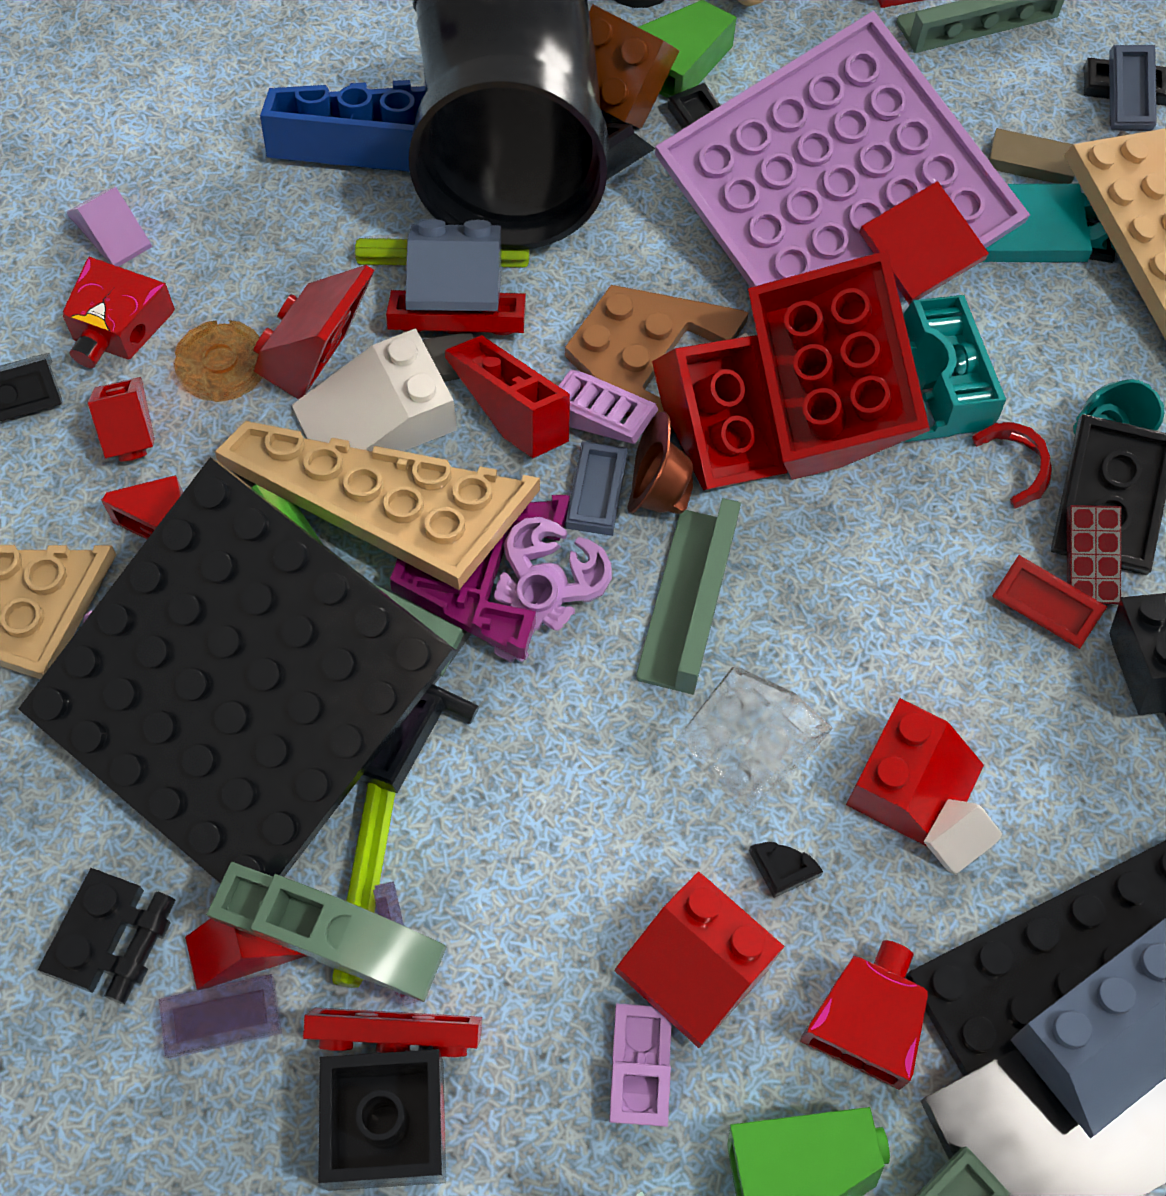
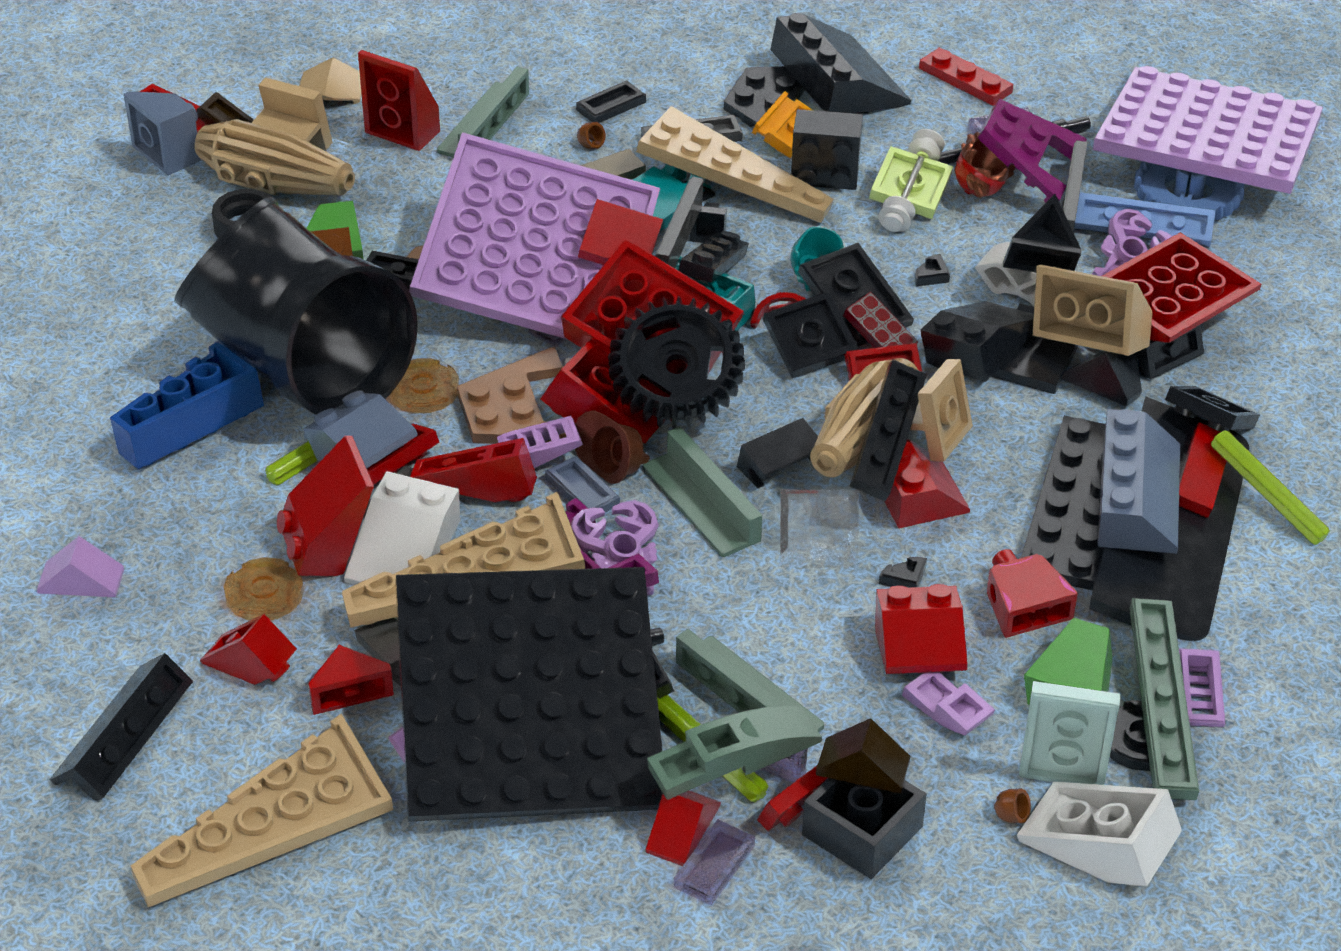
camera: 45 degrees left, 20 degrees down
(93, 929) = (591, 888): black plate -> none
(113, 311) = (159, 608): red torso -> none
(418, 1077) = (864, 757): none -> dark brown slope
(476, 857) = (731, 676): none -> sand green panel
(588, 273) = (426, 394): none -> clear orange tile
(774, 405) = (692, 341): none -> black gear
(818, 613) = (776, 451): none -> black hinge
(917, 698) = (888, 430): none -> black plate
(961, 834) = (971, 488): white slope -> none
(978, 659) = (940, 412): none -> tan piece
(989, 278) = (681, 223): none -> dark grey tile
(1000, 335) = (714, 256): none -> black plate
(1007, 502) = (809, 334): none -> black plate
(1057, 289) = (709, 222): none -> black tile
(1066, 101) = (592, 131): none -> dark orange hinge
(1132, 87) = (622, 101): sand blue tile -> none

